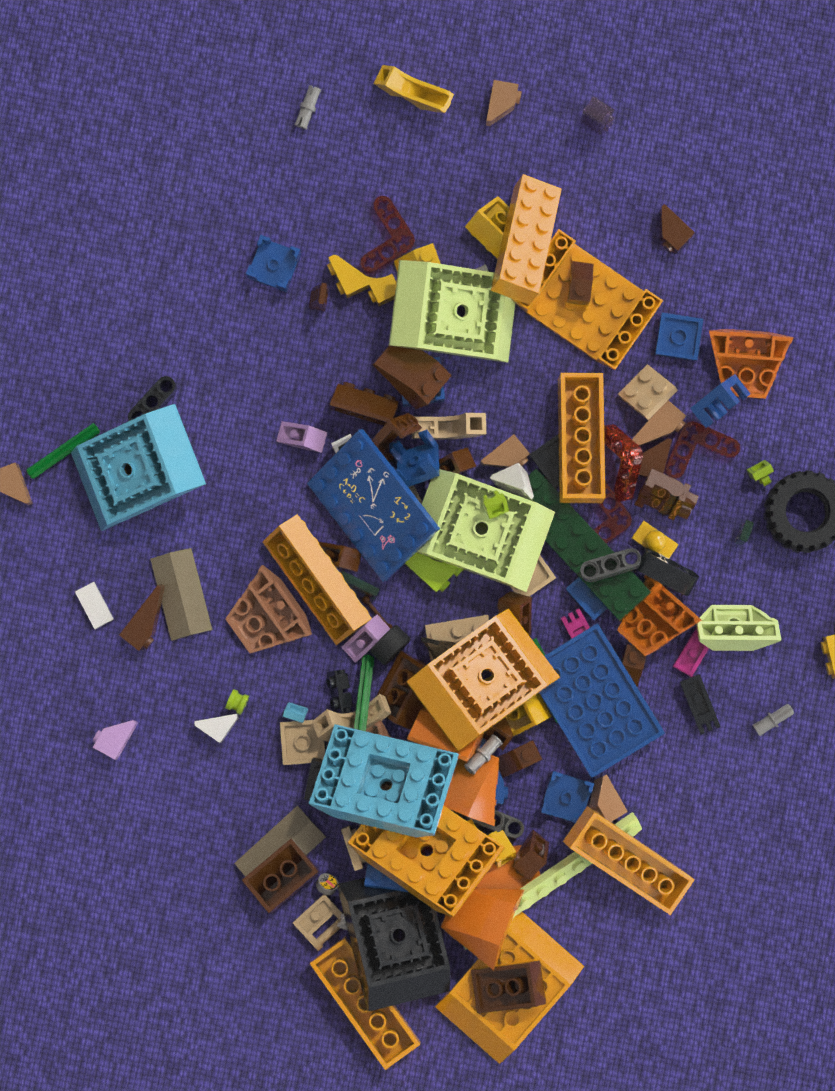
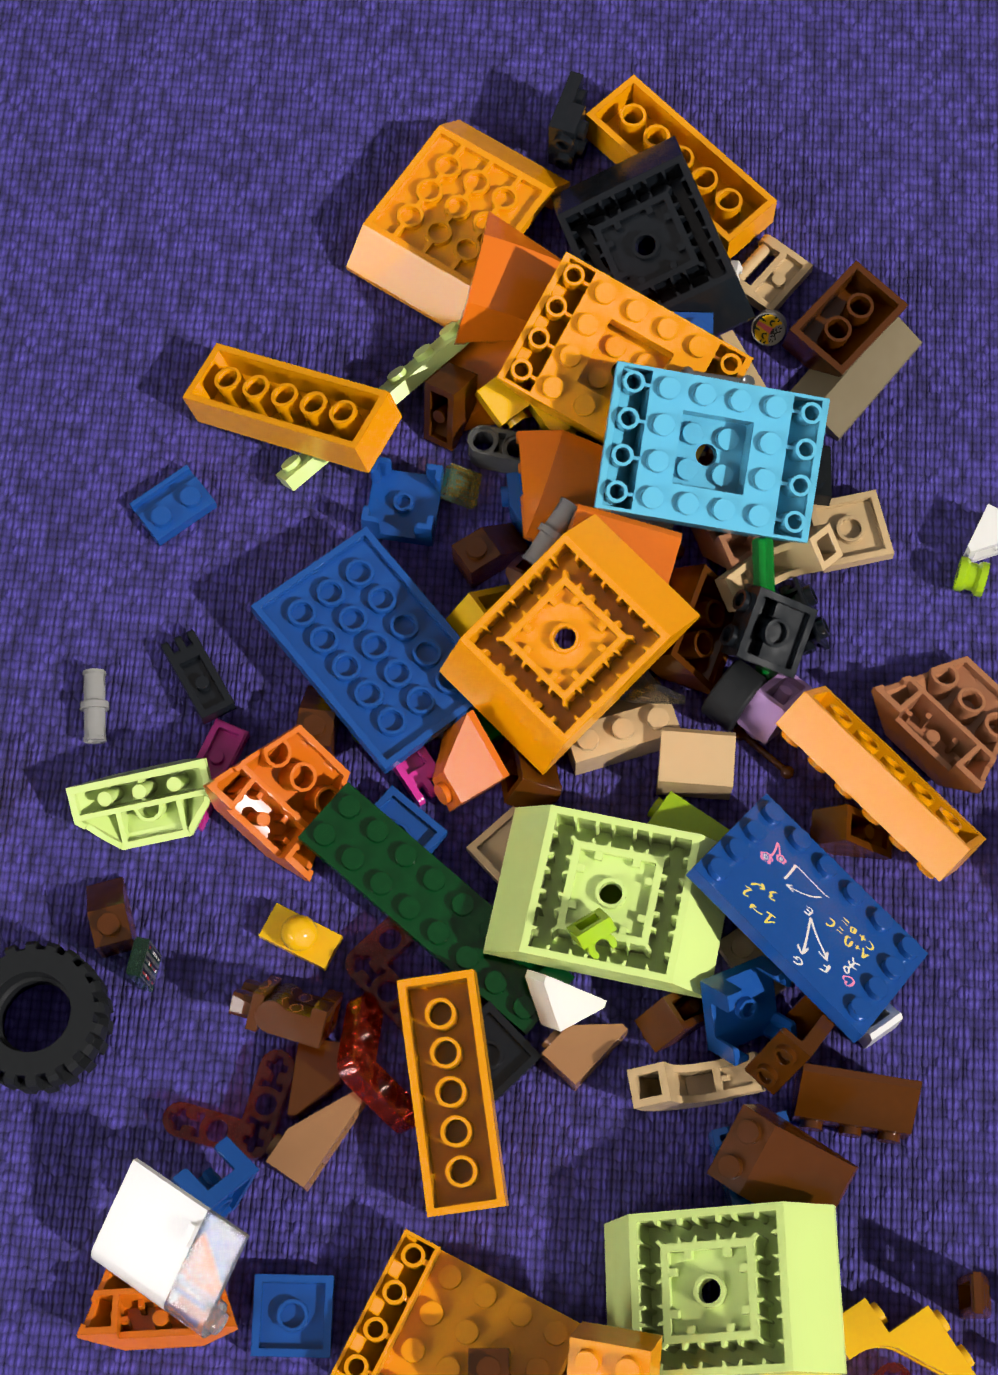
camera: 175 degrees right, 15 degrees down
(295, 712) = (871, 572): medium azure tile -> none
(301, 436) = (954, 1032): lavender slope -> none
(355, 826) = (747, 379): none -> dark grey hinge
(360, 585) = (804, 789): clear green tile -> none
(365, 677) = (768, 630): none -> black plate
(419, 606) = (696, 763): none -> tan slope
(431, 1037) = (569, 126): none -> black plate
(508, 987) = (454, 197): reddish brown slope -> none
(530, 804) = (461, 486): none -> clear yellow tile
(551, 622) = (466, 763): none -> slope
(606, 800) = (338, 498): medium nougat slope -> none
(618, 558) = (386, 852): dark grey beam -> none
(647, 392) = (340, 1199): tan plate -> none
(667, 572) = (273, 882): black beam -> none
(706, 818) = (173, 505): none -> blue plate
(740, 371) = (170, 1248): none -> white door
(760, 472) = (122, 1081): lime tile -> none
(761, 567) = (110, 917): none -> reddish brown slope
(761, 694) = (94, 706): none -> light grey pin
(773, 719) = (72, 668): light grey axle -> none

